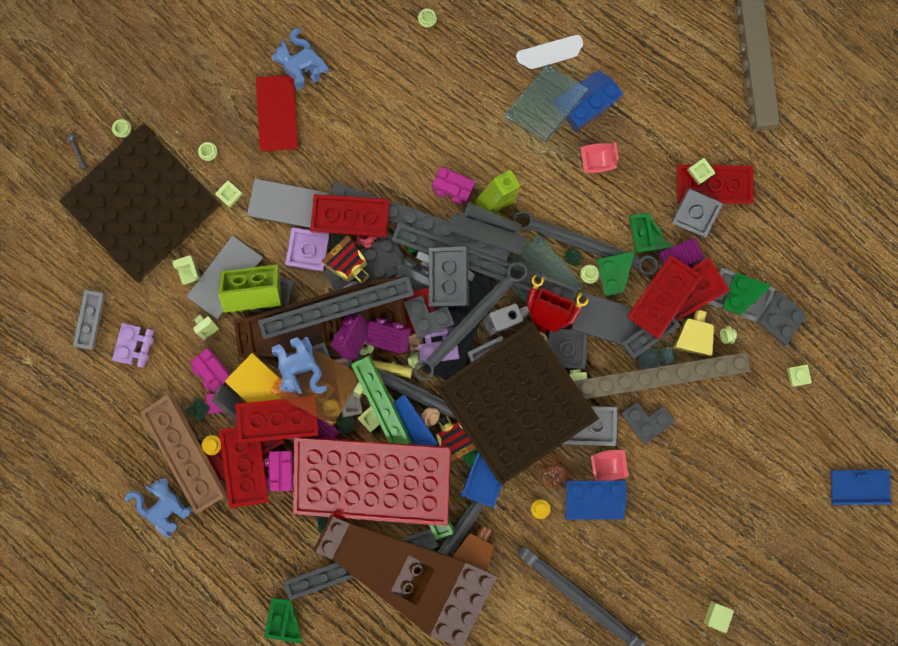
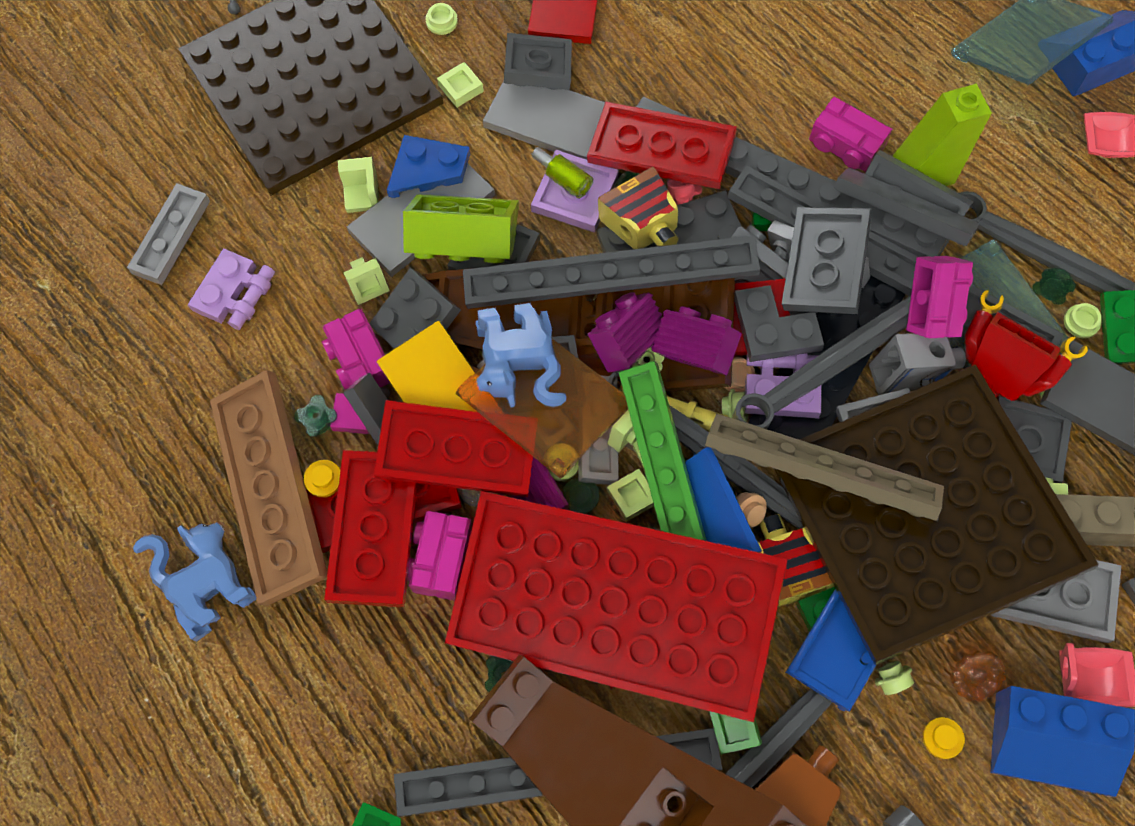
camera: 20 degrees right, 15 degrees down
(222, 251) = (426, 165): none -> blue wing
(236, 343) = (412, 309): none -> dark grey plate
(270, 172) = (538, 61): none -> dark grey plate
(299, 244) = (564, 173): none -> clear neon green piece
(461, 394) = (826, 467): none -> dark tan plate
(508, 289) = (939, 296): none -> dark pink brick
(514, 485) = (894, 678): none -> yellowish green plate

